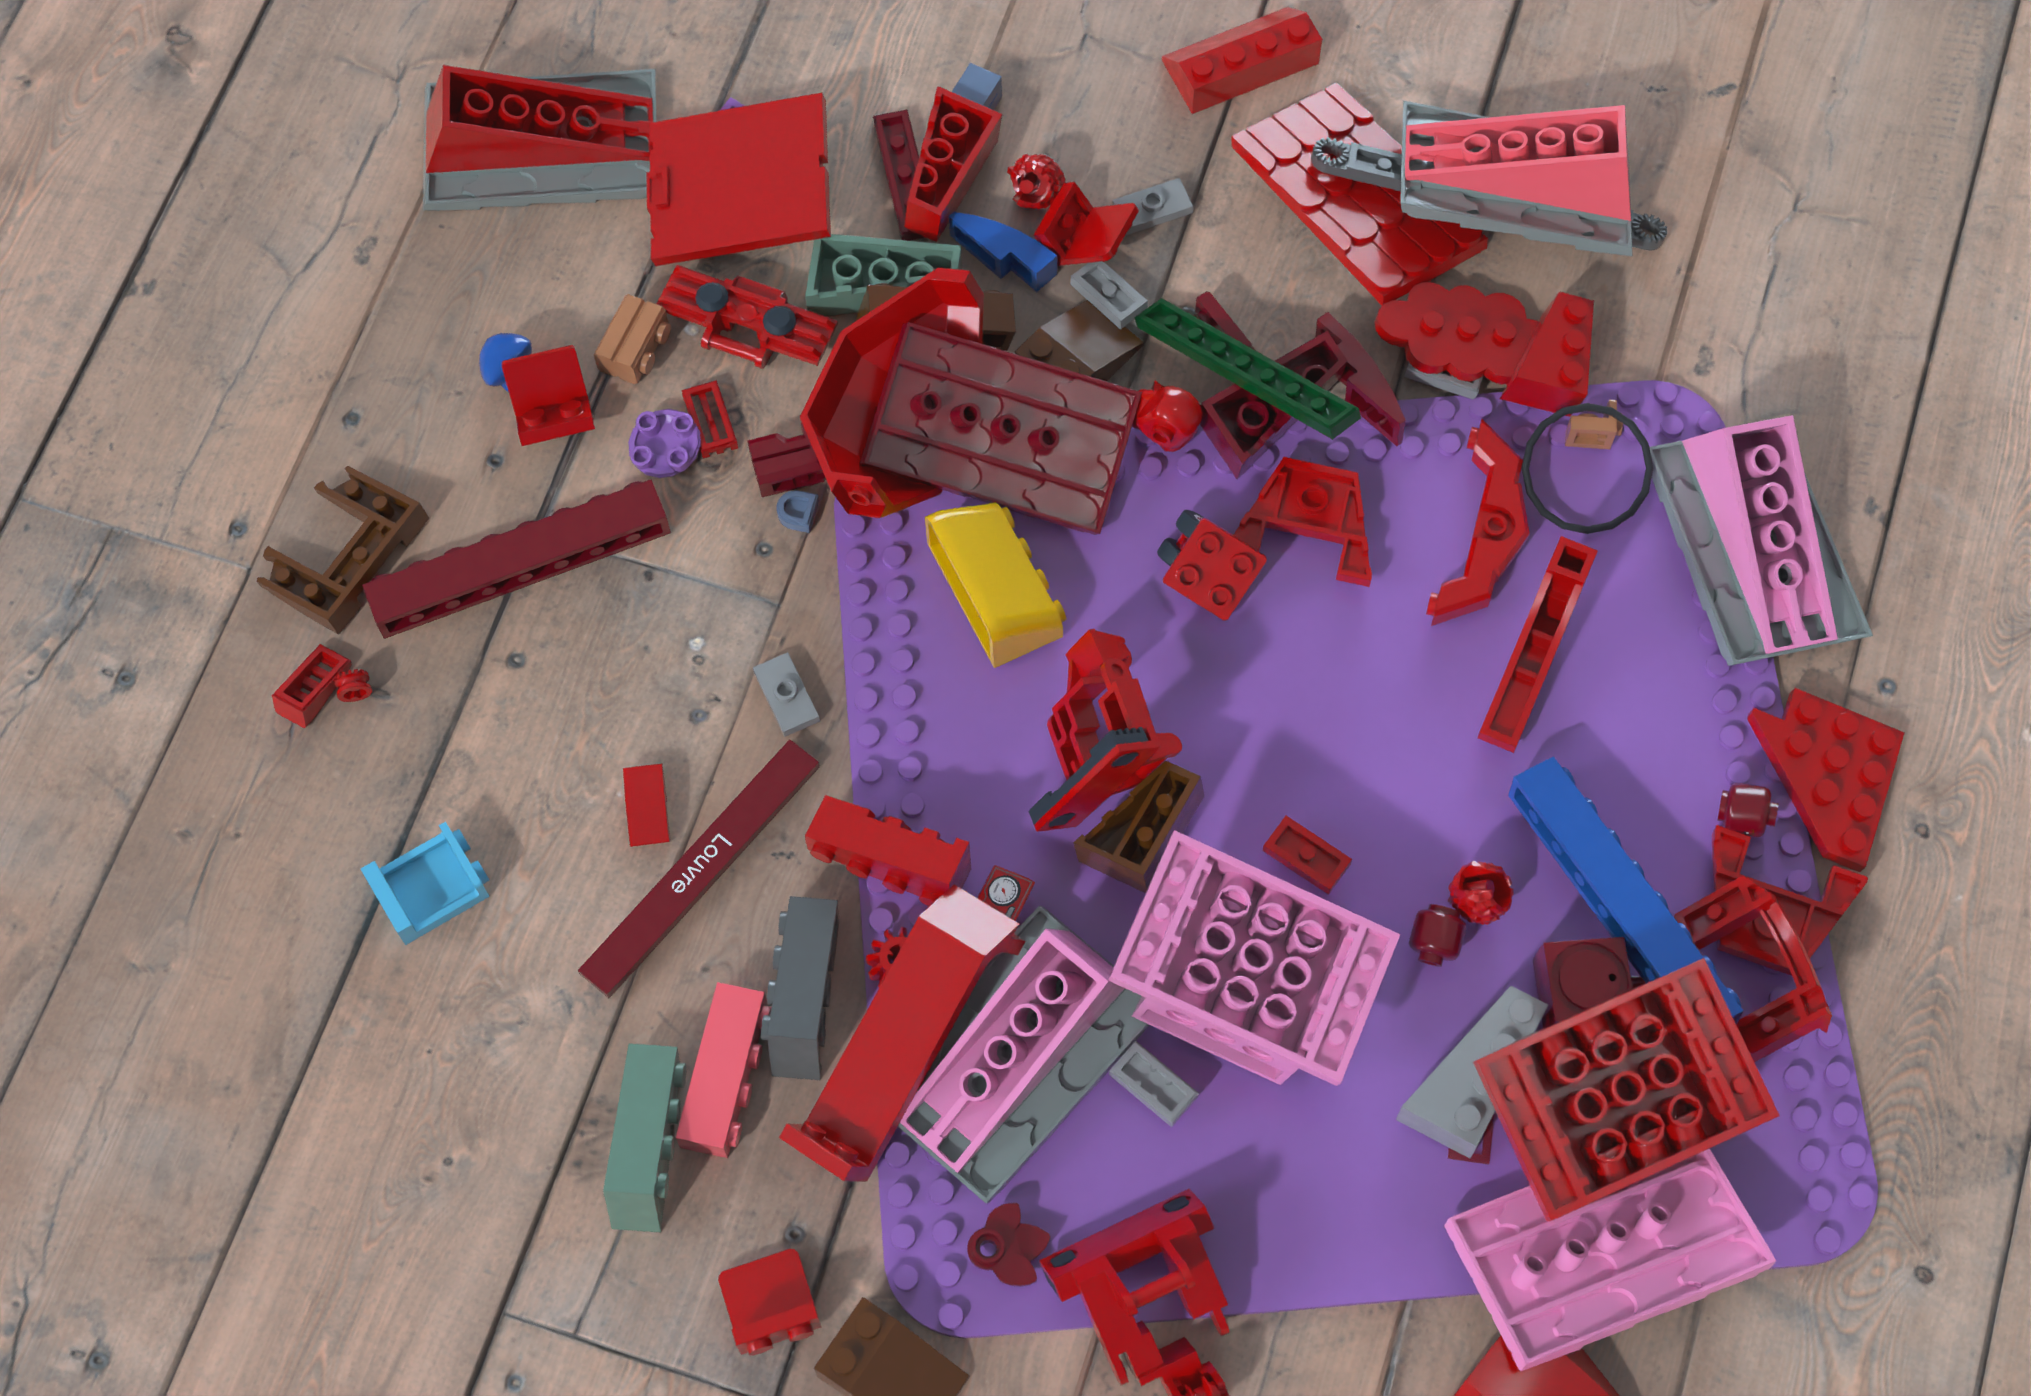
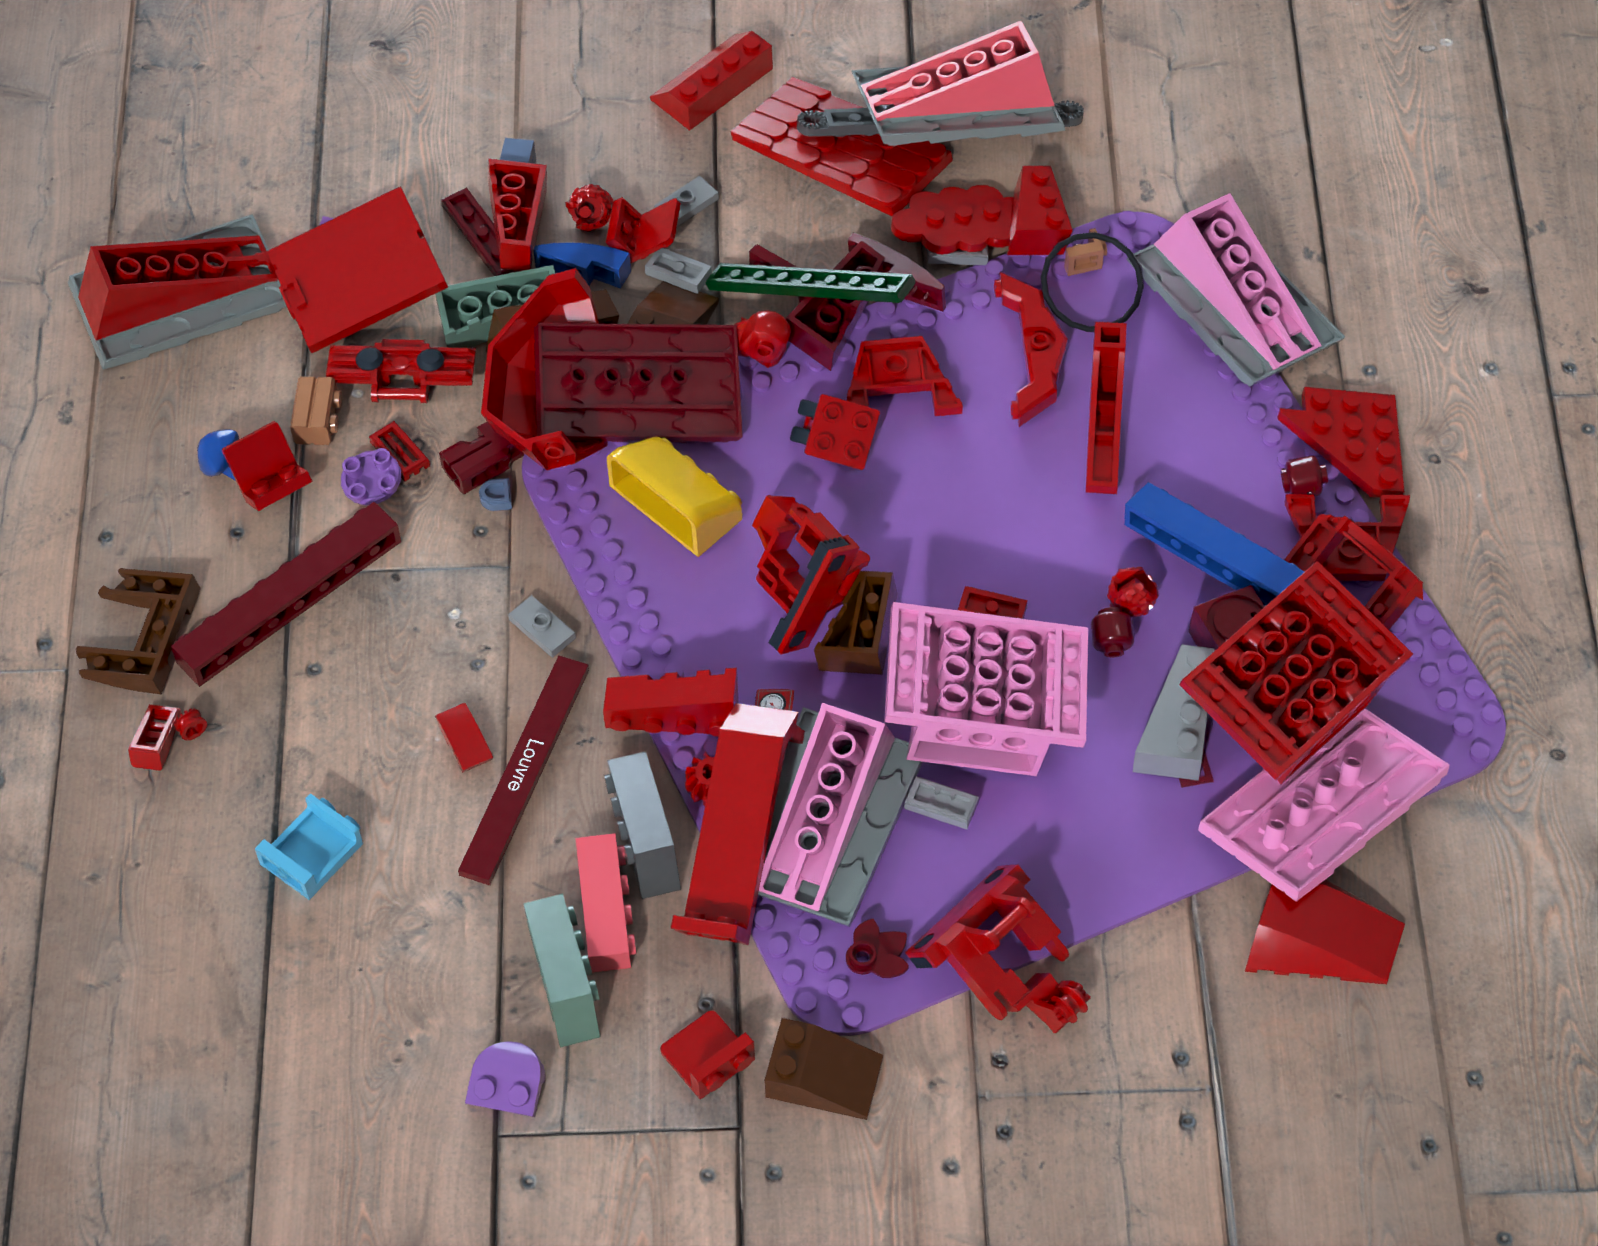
camera: 20 degrees left, 10 degrees down
(535, 1251) = (506, 1079): none -> medium lavender slope

